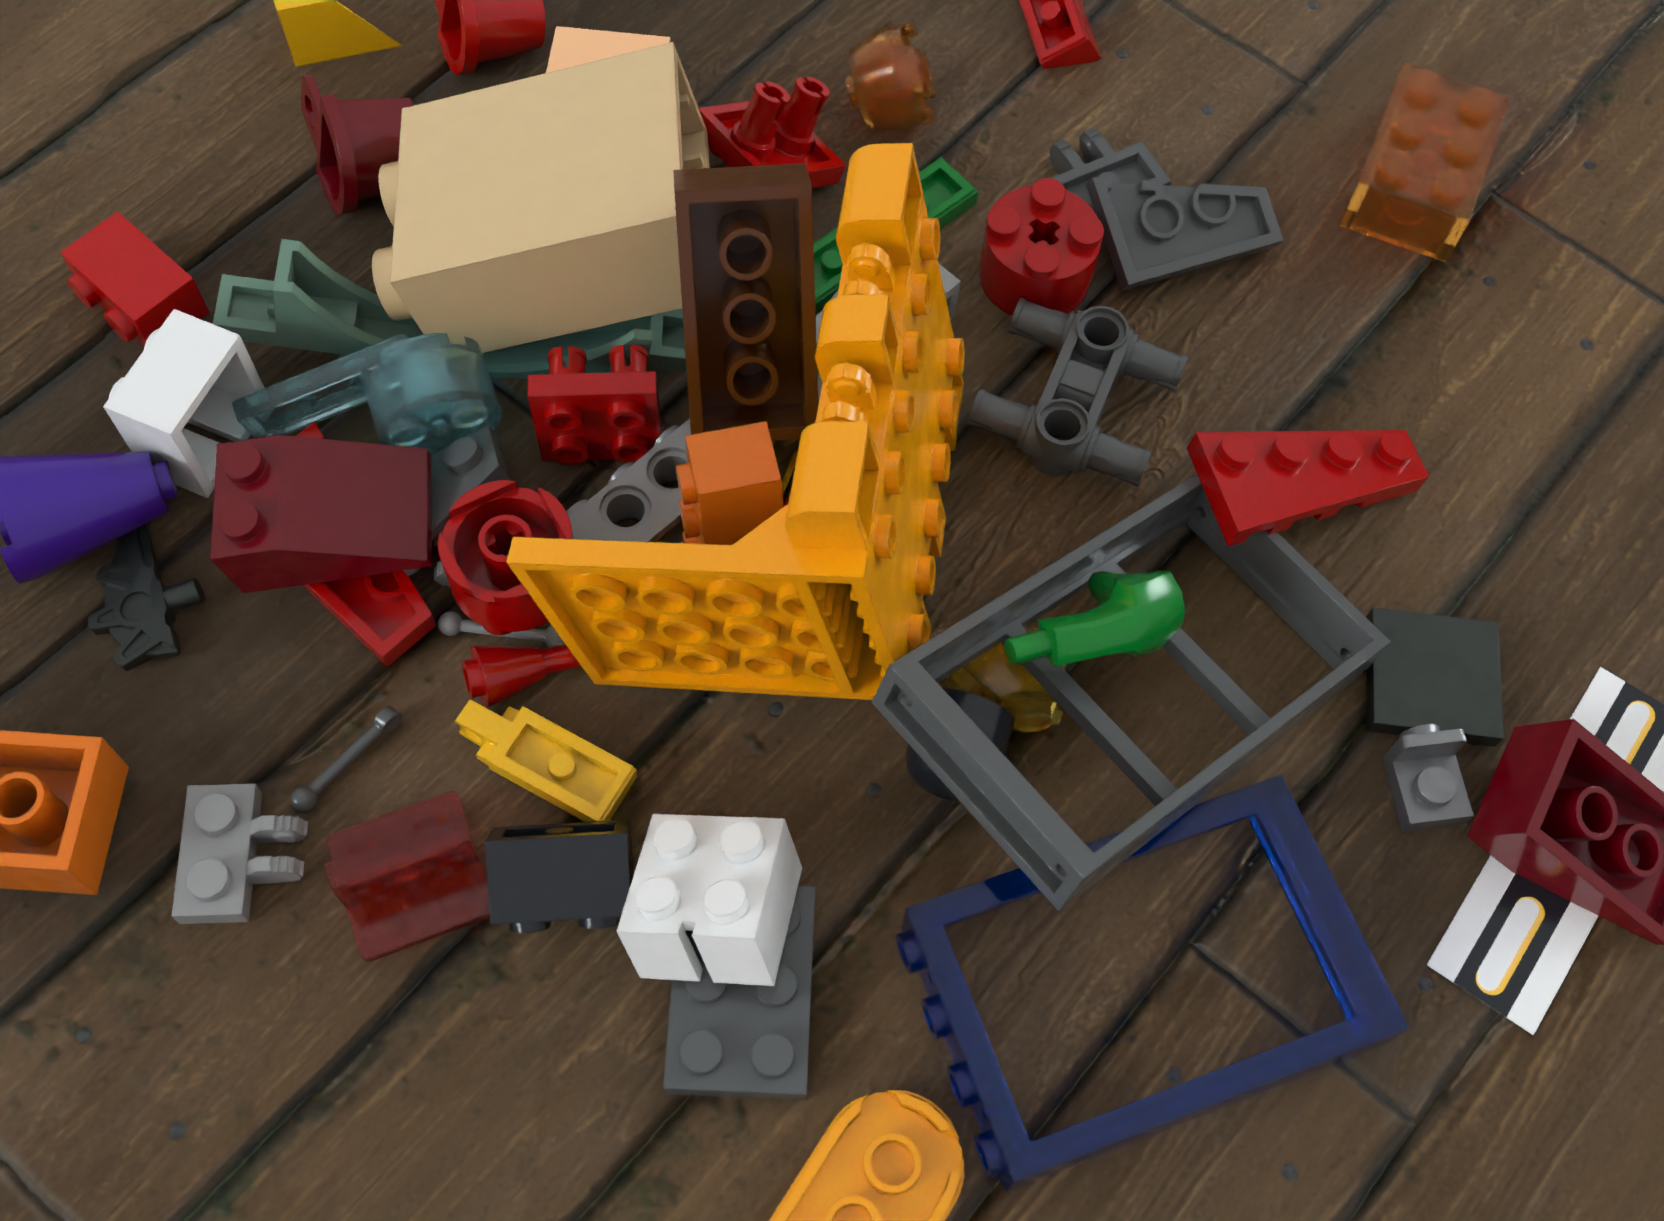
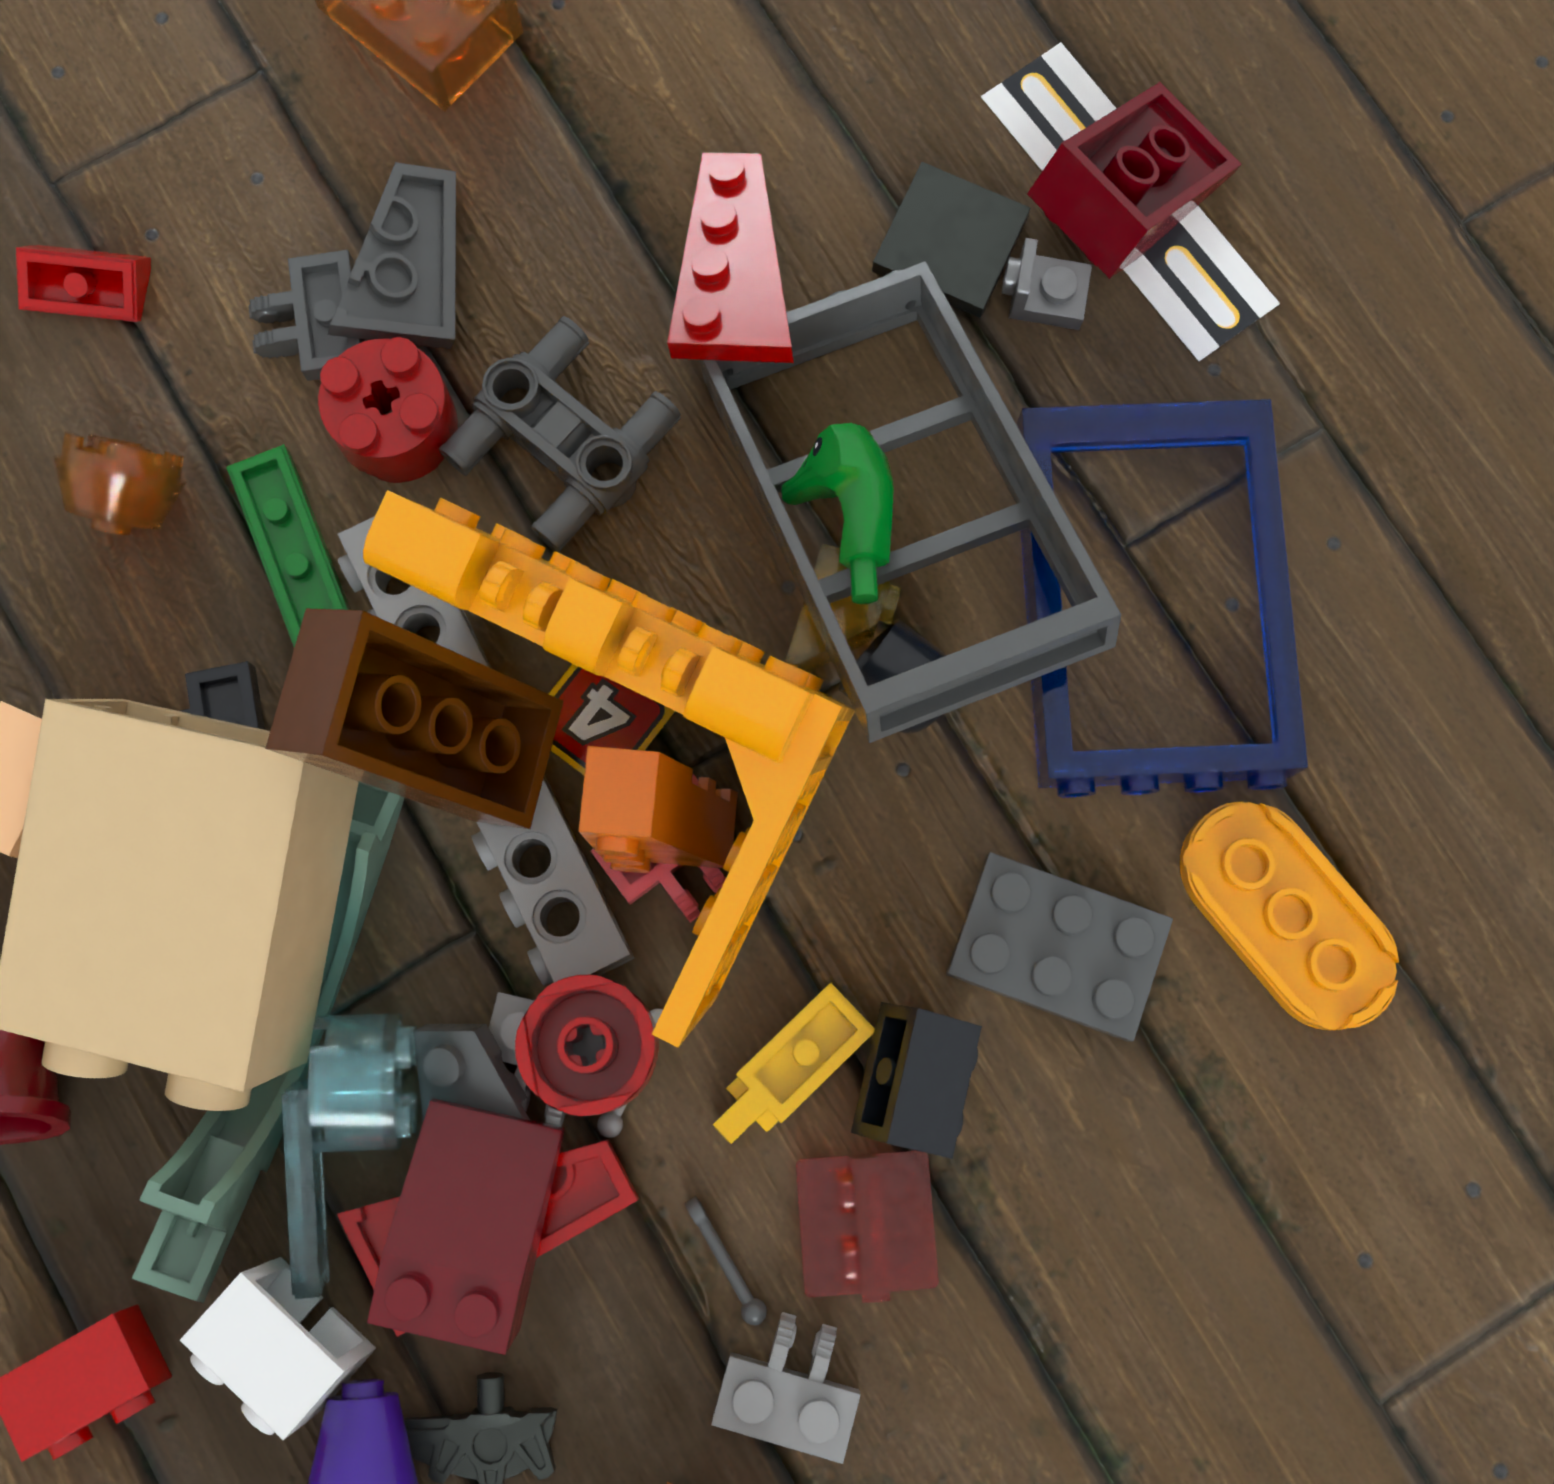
camera: 70 degrees left, 15 degrees up
(506, 670) = (686, 1084): red cone -> none
(595, 414) = (450, 889): red plate -> none
(725, 883) = (985, 945): white piece -> none
(775, 130) = (152, 634): red plate -> none

